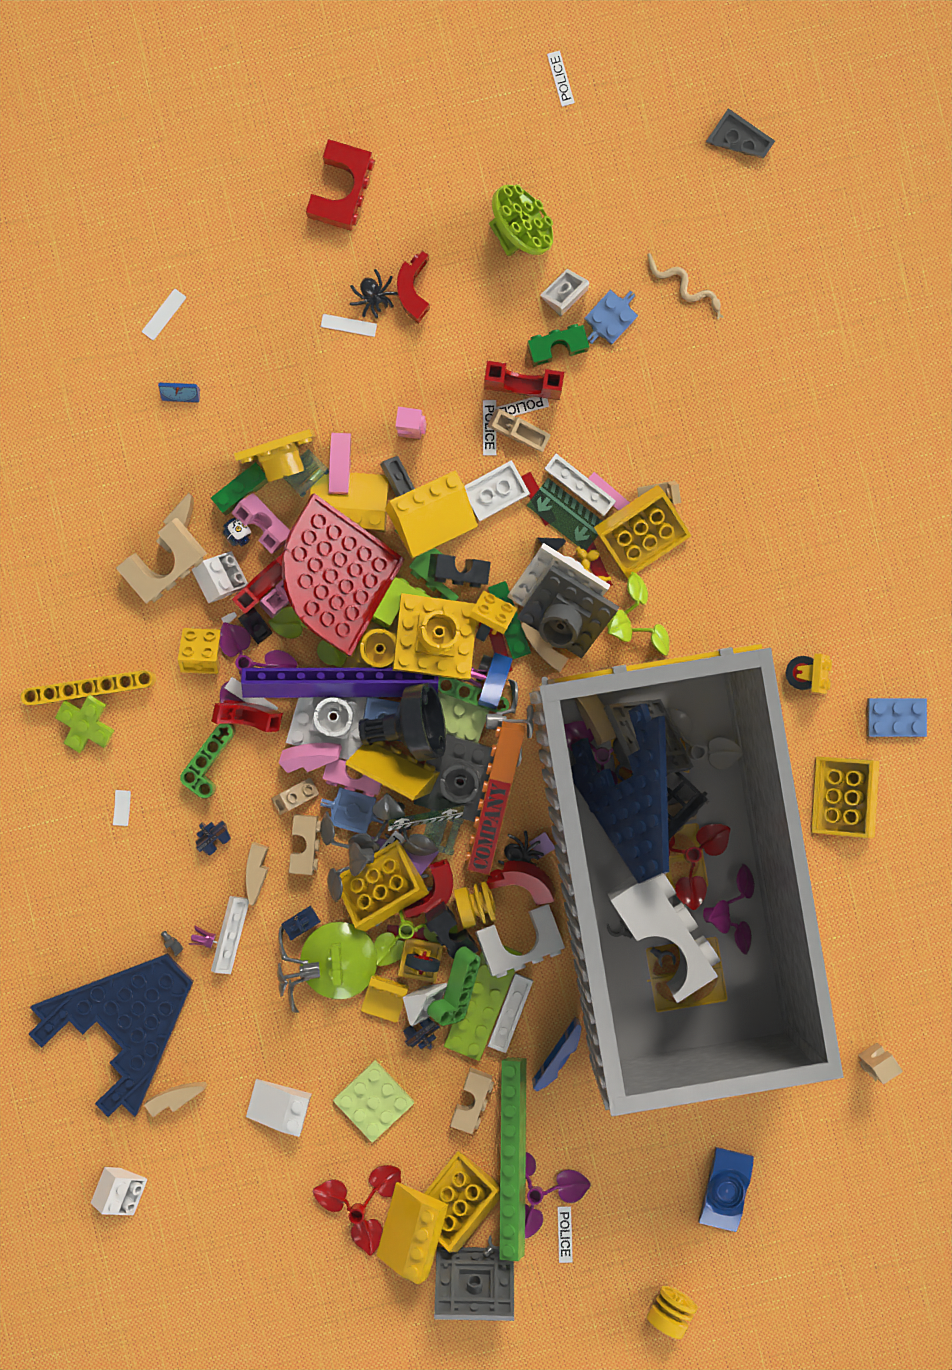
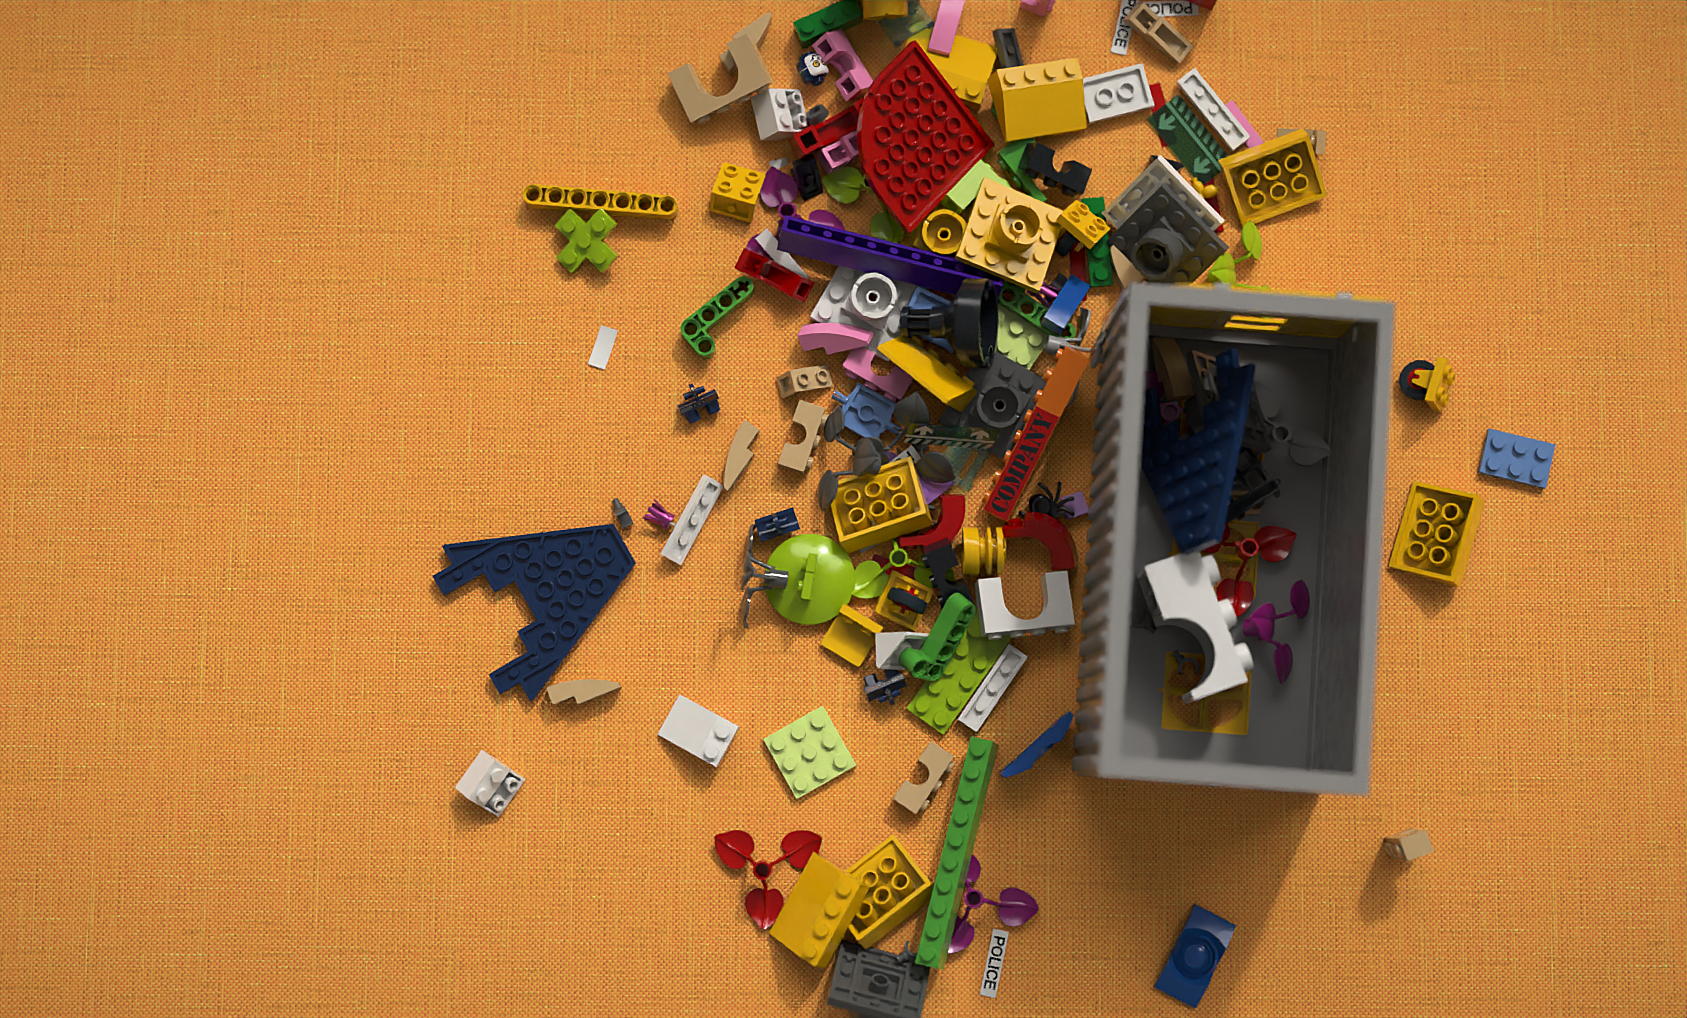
camera: 10 degrees right, 5 degrees down
(250, 570) = (817, 114): none -> dark grey tile

